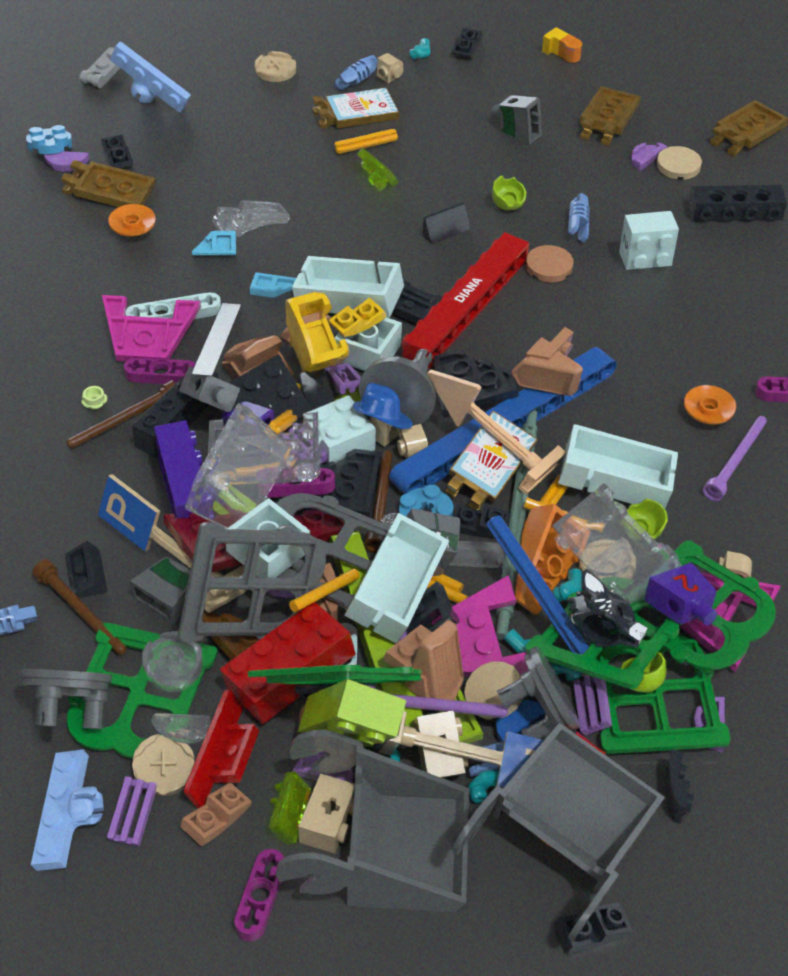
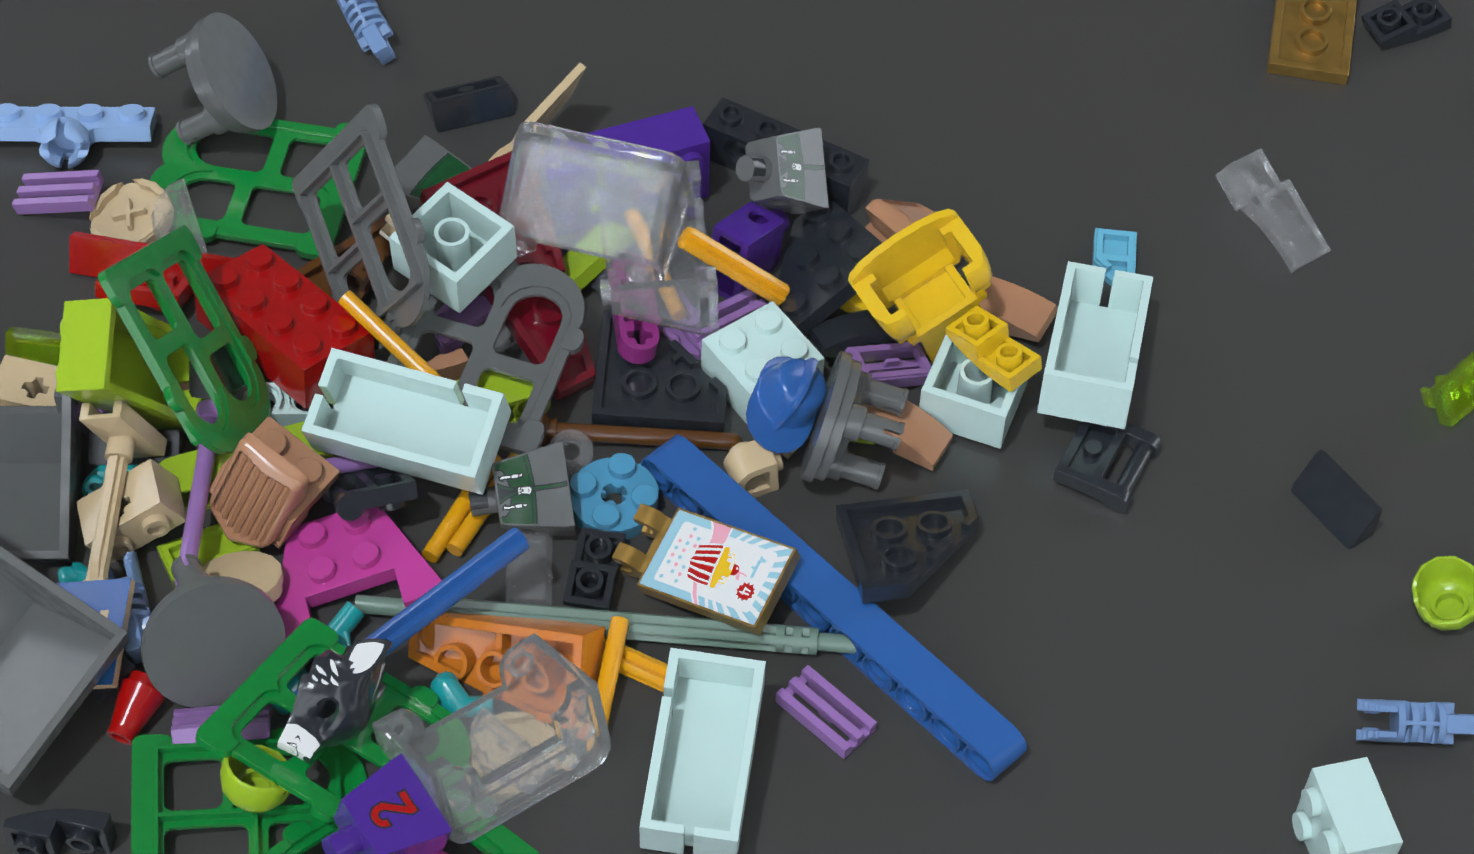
camera: 85 degrees right, 5 degrees up
(47, 574) = (457, 58): reddish brown piece -> none
(94, 397) = (806, 64): yellowish green plate -> none
(119, 418) = (765, 96): reddish brown piece -> none
(132, 220) = (1224, 56): orange dish -> none
(147, 335) = (943, 105): dark pink wing -> none
(153, 364) = (886, 124): magenta beam -> none
(168, 305) = (1019, 138): light aqua beam -> none
(172, 663) = (267, 195): clear cylinder -> none
(216, 339) = (916, 170): white sticker -> none
(217, 244) = (1194, 175): medium azure tile -> none
(218, 813) = (50, 279): nougat slope -> none
(459, 400) = (795, 493): light nougat piece -> none
(467, 298) = (1131, 537): red brick -> none
(548, 366) = (914, 625): nougat piece -> none
(549, 263) = (1270, 675): nougat tile -> none
(564, 428) = (836, 699): none -> medium lavender tile
(649, 516) = (599, 805): lime hair -> none

